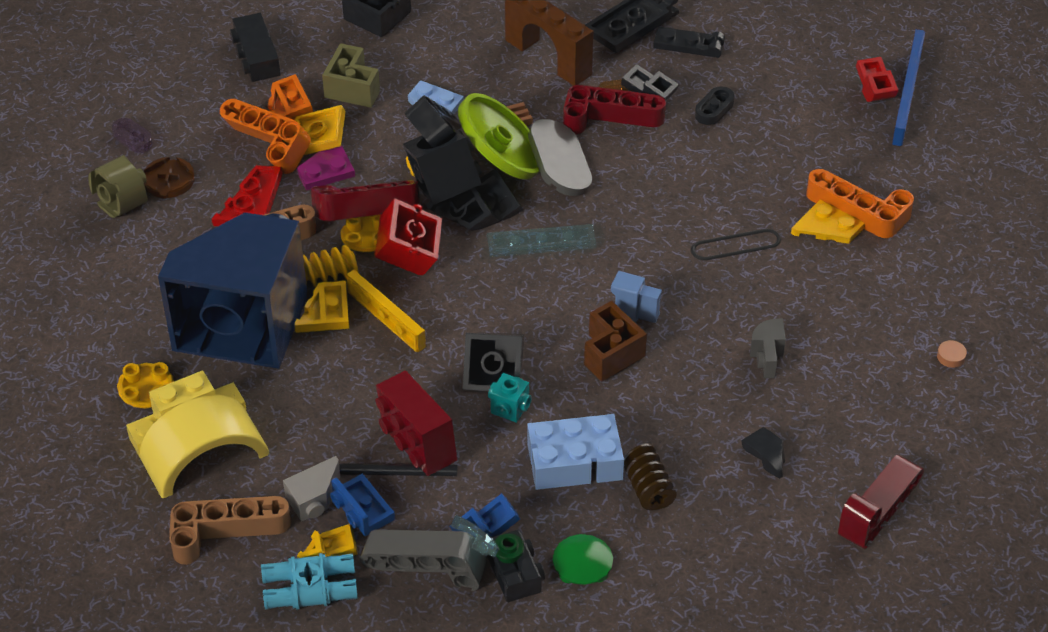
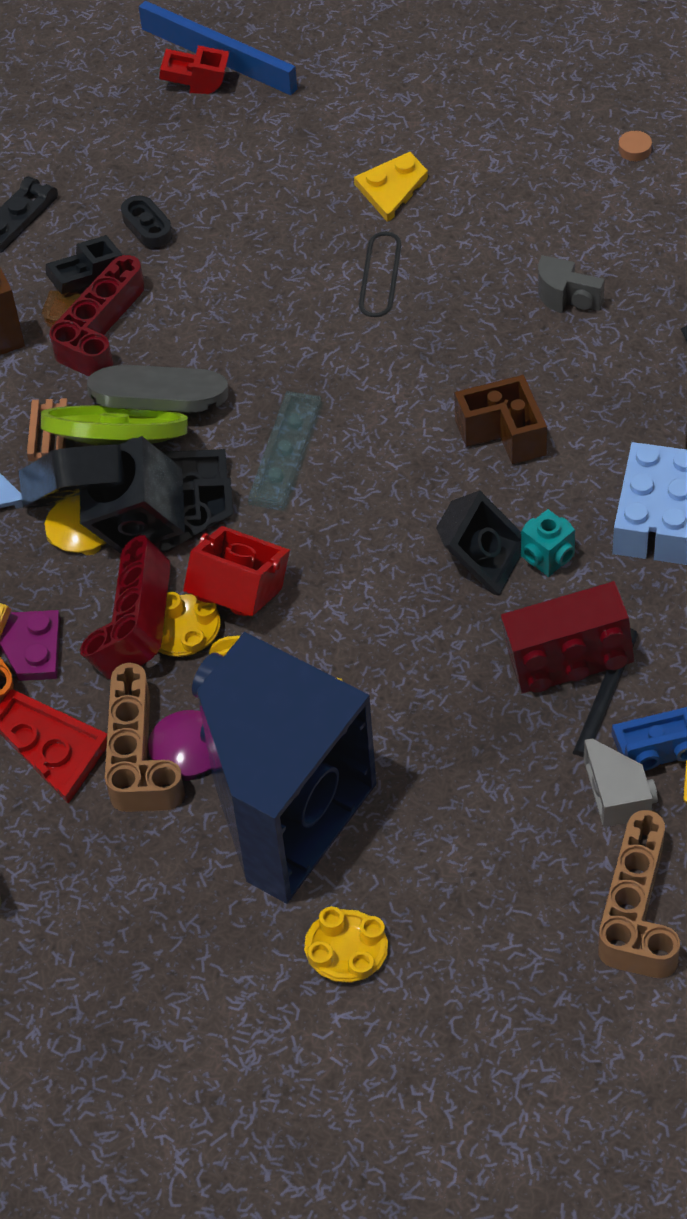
camera: 65 degrees left, 5 degrees up
(187, 422) = (491, 885): light yellow piece -> none
(386, 311) = (349, 631): yellow tile -> none
(635, 297) = (442, 376): medium blue piece -> none
(880, 216) = (408, 130): orange beam -> none

